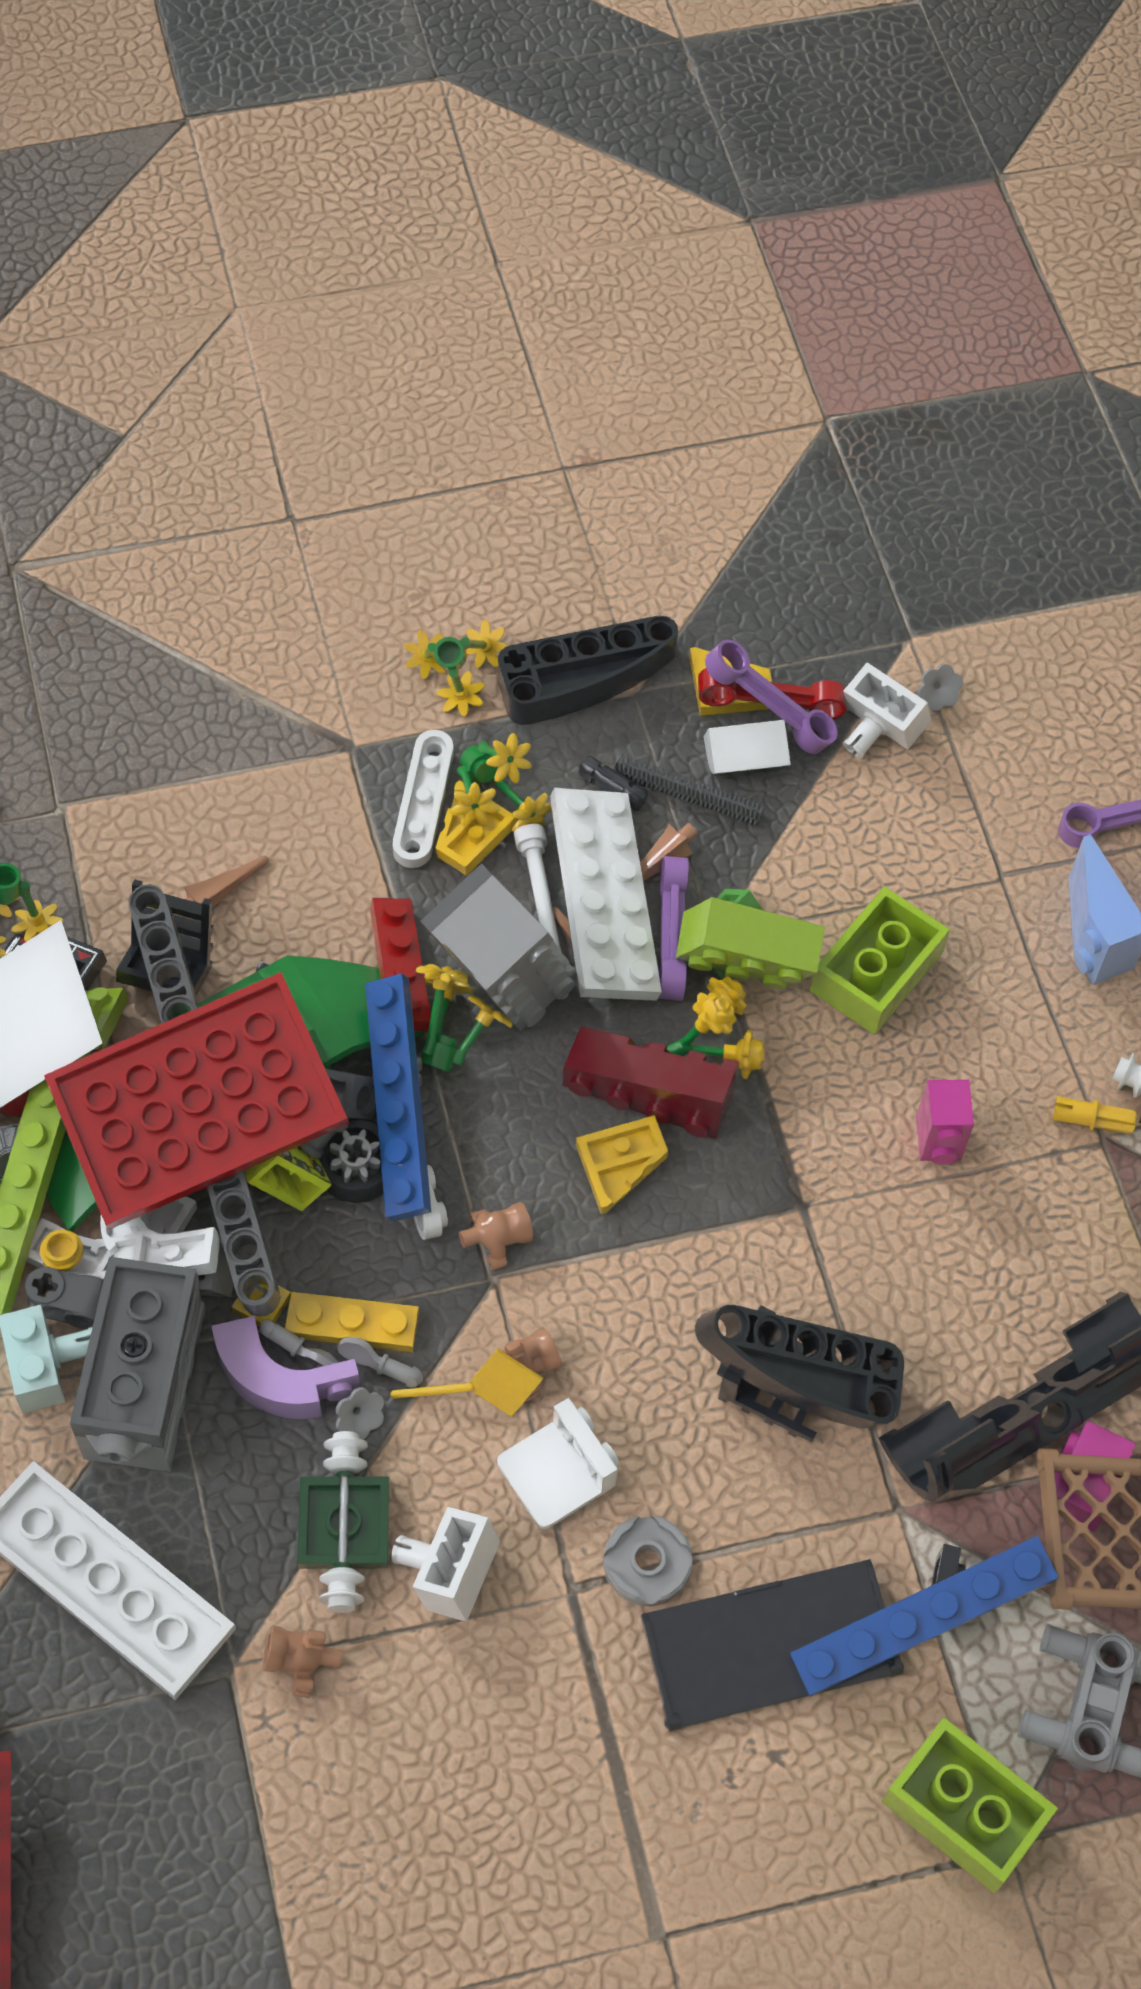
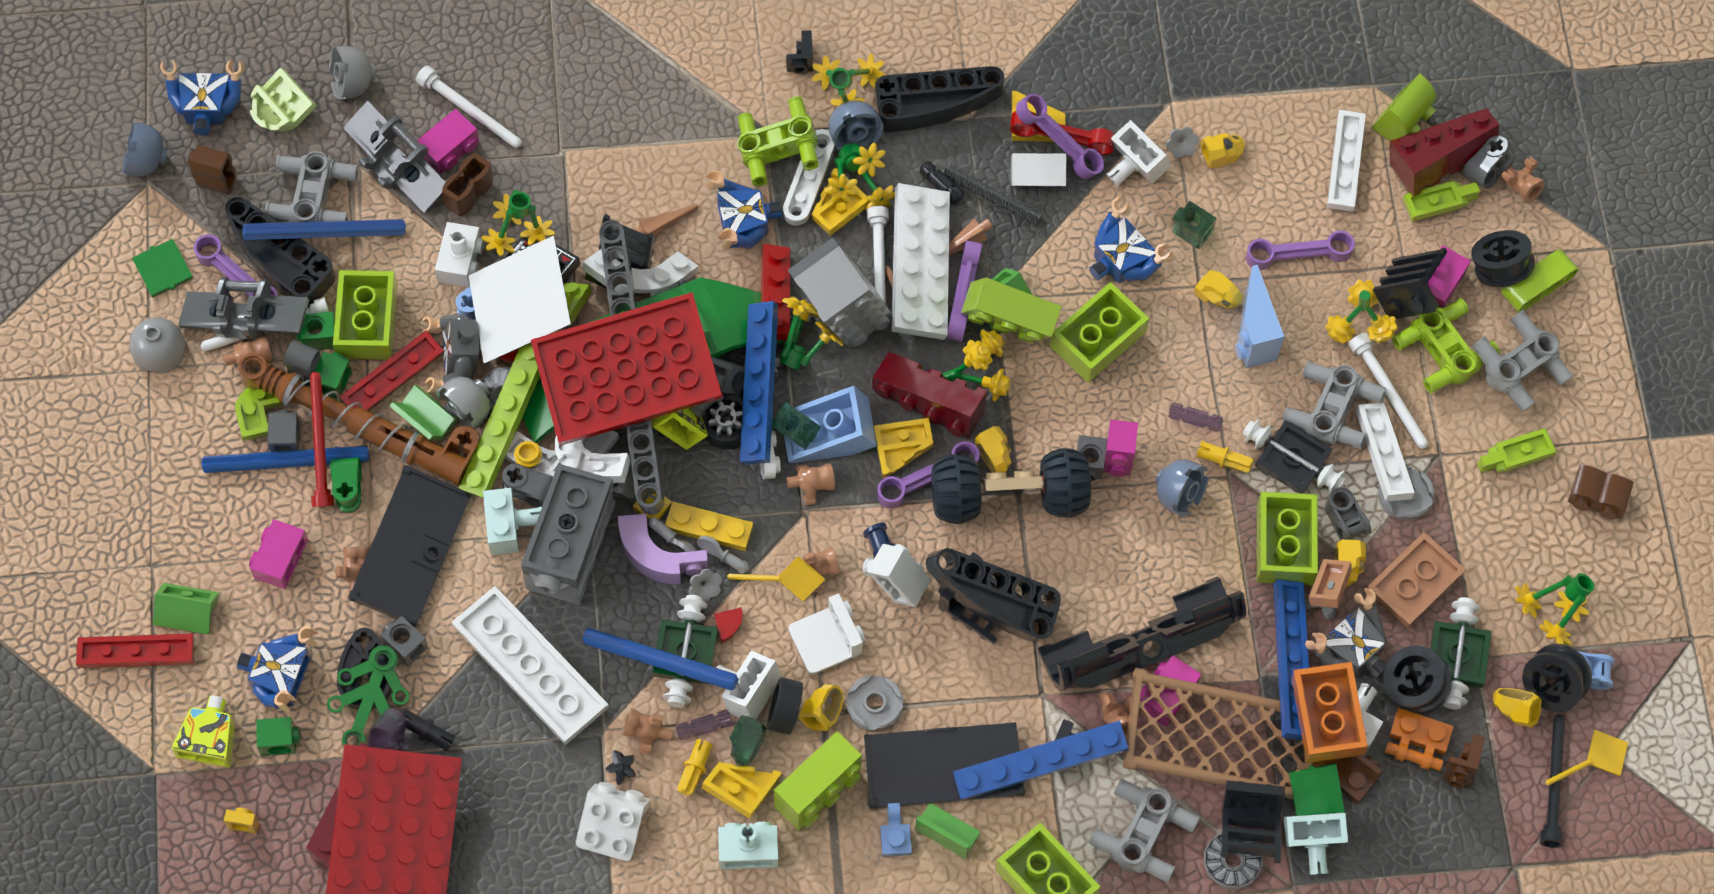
camera: 10 degrees right, 5 degrees up
(208, 971) = (652, 280): none -> white plate
(265, 1815) = (611, 821): none -> white bracket
(269, 1722) = (621, 766): none -> black plant
(308, 1540) = (660, 659): none -> blue axle
(333, 857) = (741, 212): none -> torso
(371, 753) = (777, 141): none -> lime piece
(385, 1707) = (694, 767): none -> yellow axle
(389, 640) = (803, 60): none -> black bracket
(389, 1634) = (703, 725): none -> axle
(403, 1467) = (728, 623): none -> red tile
(449, 1146) = (789, 419): none -> clear green brick
(460, 1650) = (746, 740): none -> clear green rock
(462, 1727) = (740, 786): none -> yellow wing
(476, 715) = (855, 123): none -> sand blue cylinder
(489, 1824) = (748, 846): none -> light aqua brick
(509, 1149) = (844, 427): none -> light blue slope
(513, 1586) = (785, 705): none -> black tyre
(570, 1581) = (822, 708): none -> yellow rock
(585, 1702) = (818, 782): none -> lime brick
(613, 1307) = (877, 536): none -> dark blue bush
(651, 1355) = (898, 574): none -> white brick
(667, 1199) = (917, 479): none -> medium lavender piece
(717, 1771) = (895, 836): none -> medium blue plate
(759, 1150) = (994, 449): none -> yellow rock
(796, 1749) = (947, 830): none -> bright green panel
(870, 1179) = (1062, 482): none -> black plate
(890, 843) = (1124, 251): none -> torso
(904, 1127) = (1095, 448): none -> dark grey brick
(984, 808) = (1196, 234): none -> clear green brick
(995, 691) = (1221, 149): none -> yellow rock
(1015, 1522) = (1115, 711): none -> nougat piece
(1034, 881) = (1218, 290): none -> yellow rock
(1039, 1063) = (1196, 417): none -> clear purple axle
(1042, 1163) = (1181, 485): none -> sand blue cylinder

